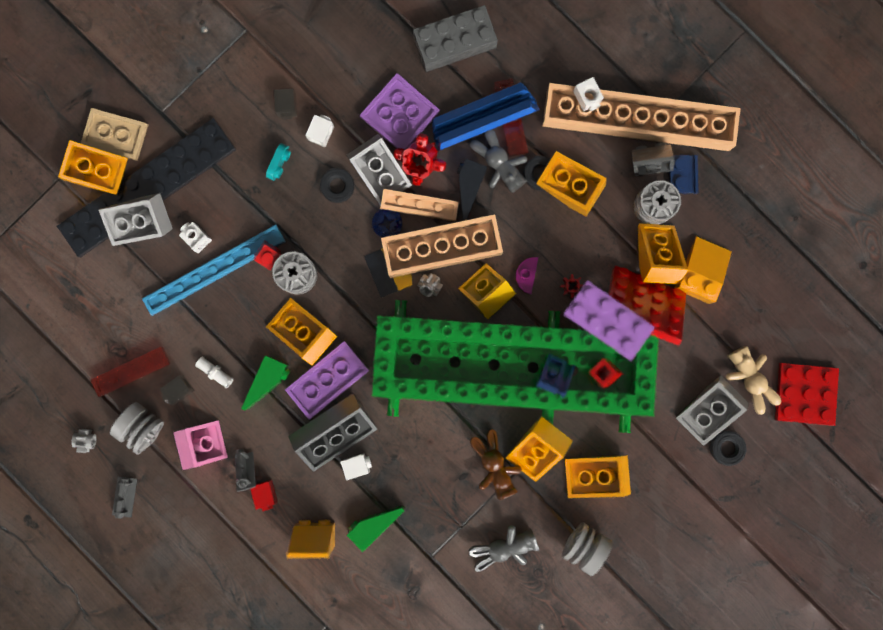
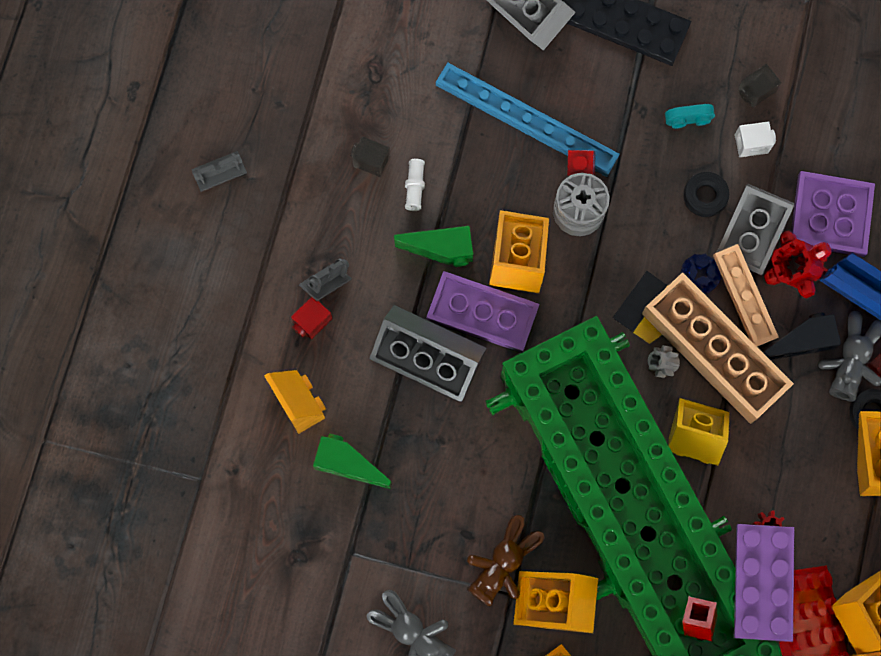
camera: 60 degrees right, 10 degrees down
(84, 440) = (256, 92): light grey gear -> none
(130, 372) = (360, 97): clear red plate -> none
(137, 428) = (305, 137): light grey wheel -> none
(200, 240) = (550, 84): white brick -> none
(200, 445) = (325, 216): bright pink slope -> none
(356, 466) = (405, 401): white brick -> none
(526, 273) = (746, 466): magenta plate -> none
(556, 375) = (658, 560): dark blue plate -> none

